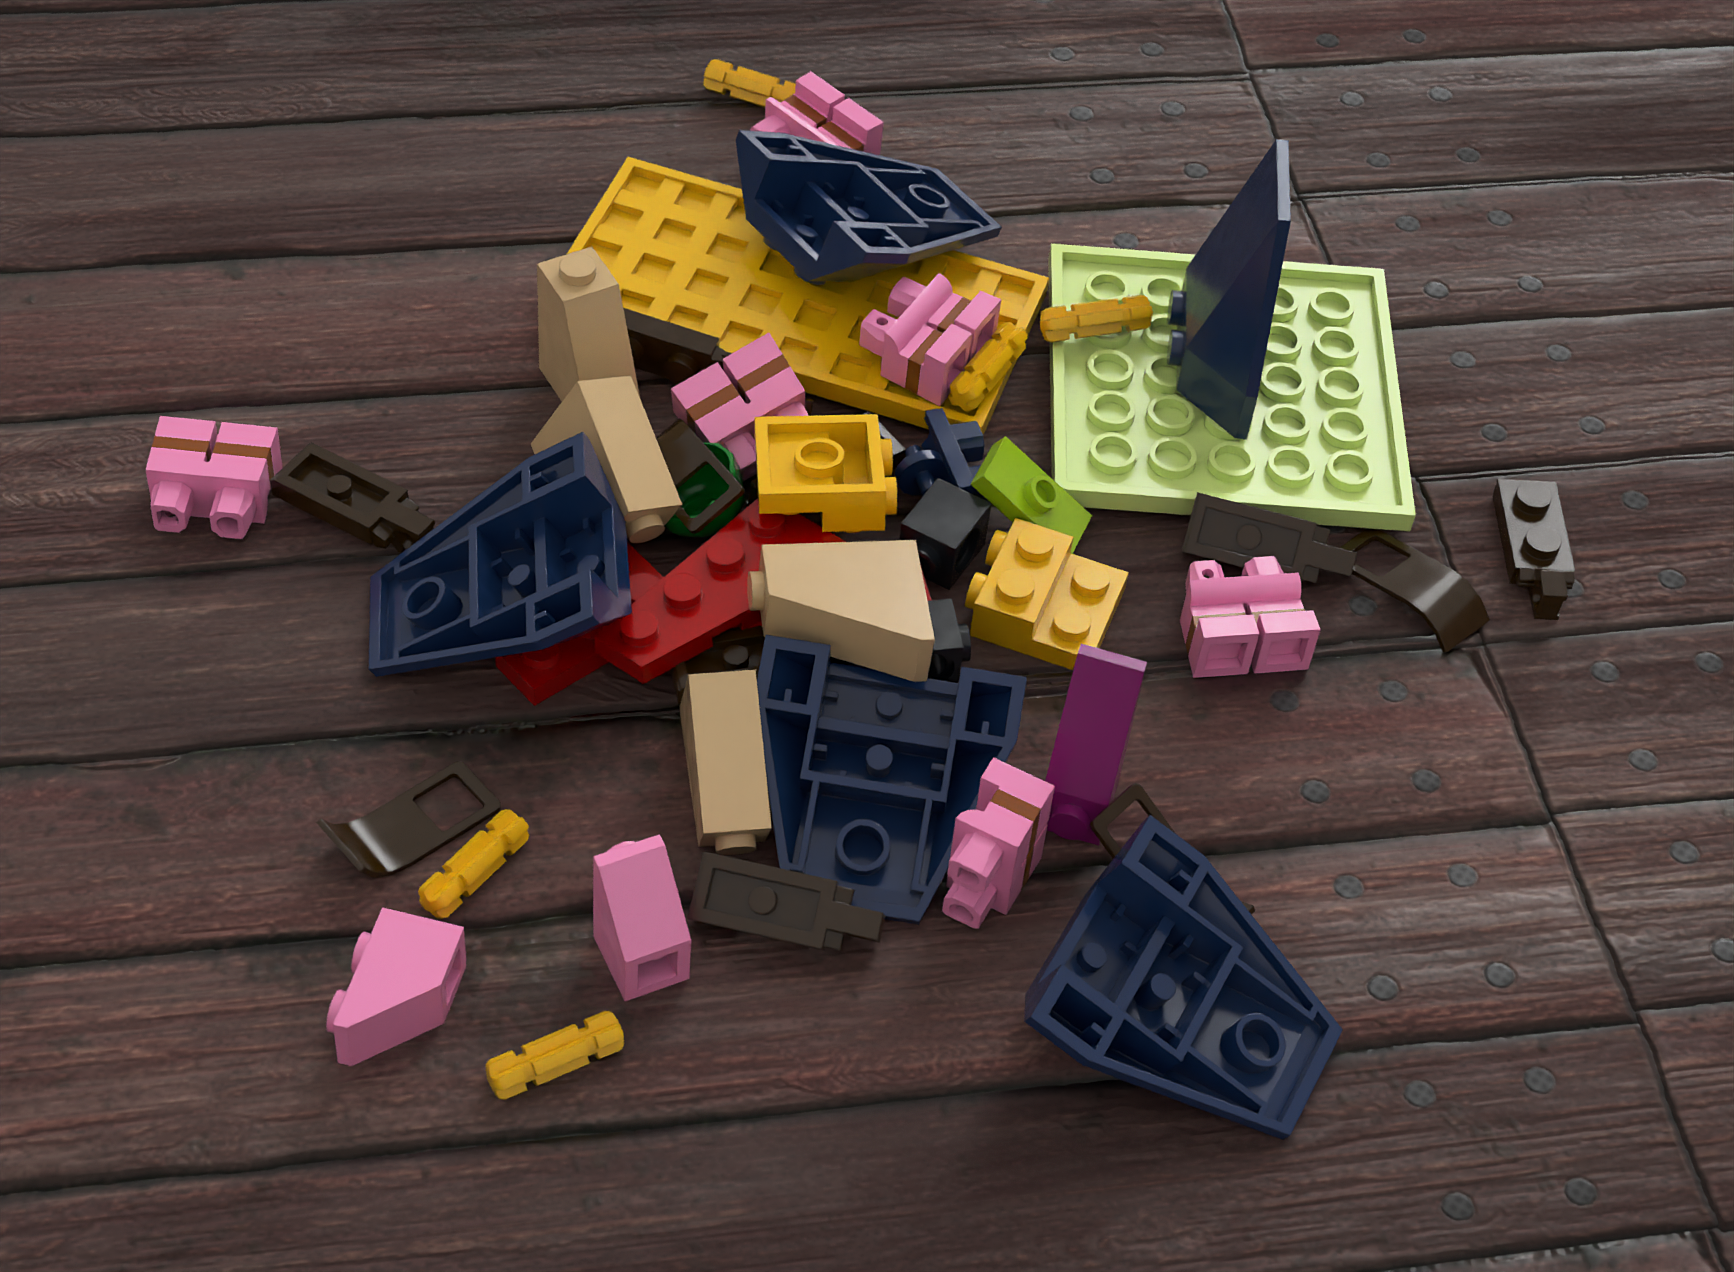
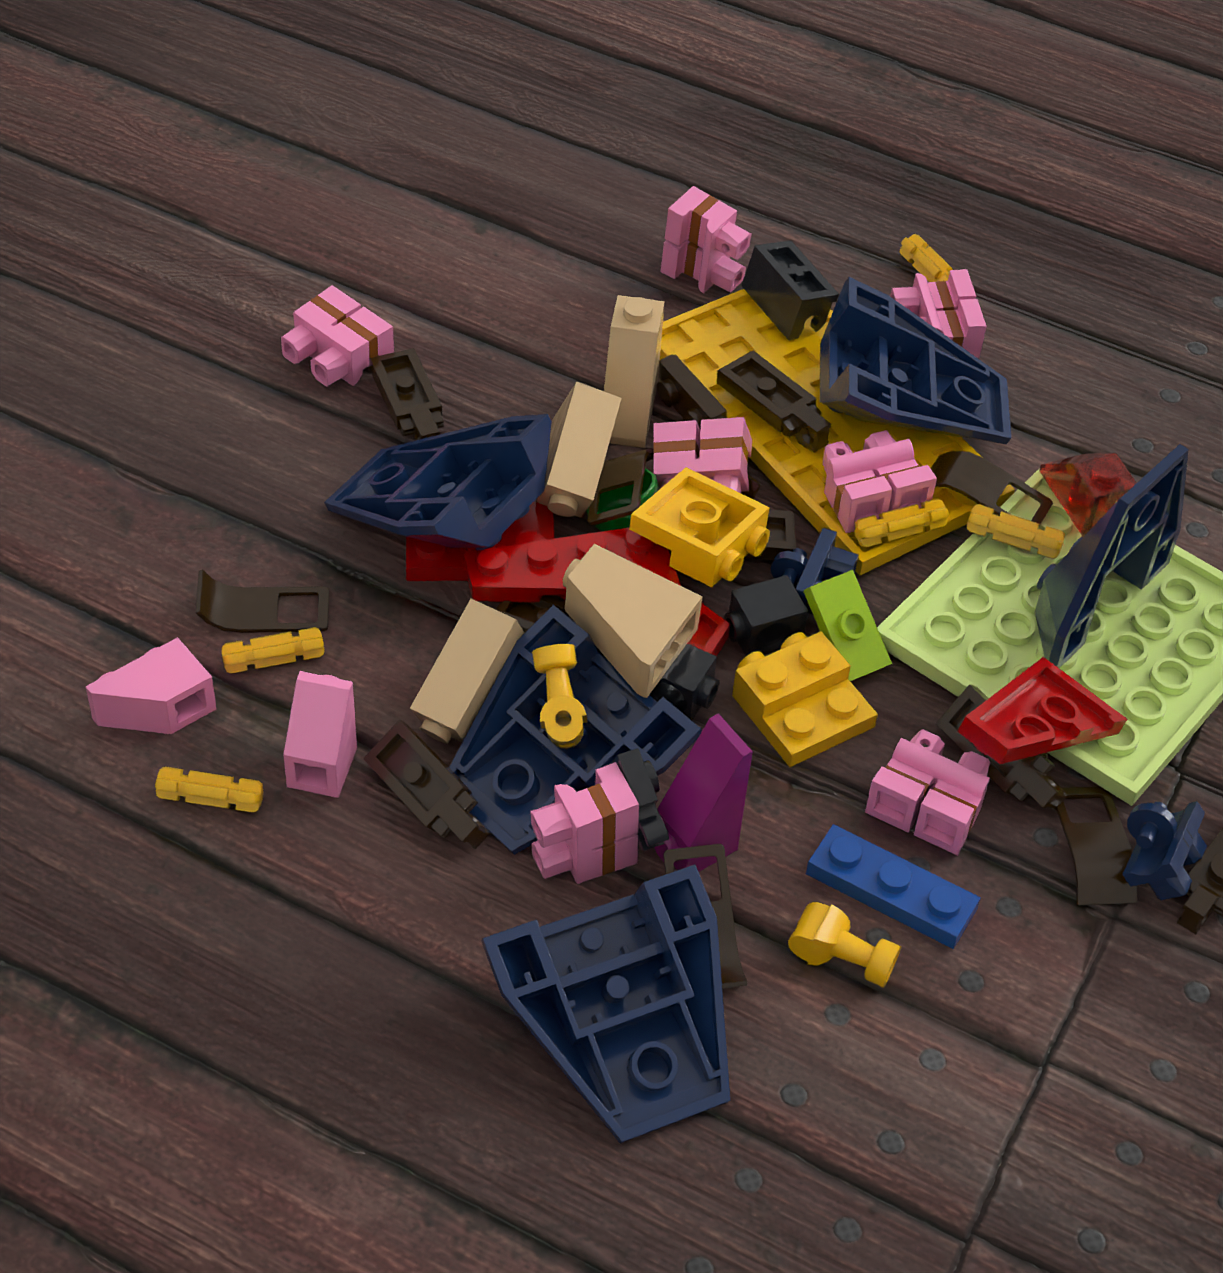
camera: 40 degrees right, 0 degrees up
(516, 164) = (702, 240): none -> bright pink hips
(661, 176) = (788, 288): none -> black hinge
(756, 300) = (775, 399): none -> dark brown hinge
(874, 748) = (562, 713): none -> yellow leg
(1021, 282) = (982, 481): none -> dark brown piece
(1066, 806) = (644, 785): none -> black plate
(1128, 237) = (1088, 485): none -> clear red slope
(1281, 815) = (825, 934): none -> yellow leg
(1287, 732) = (893, 886): none -> blue plate
(1290, 486) = (1039, 715): none -> red wing
(1487, 552) = (1163, 847): none -> dark blue hips

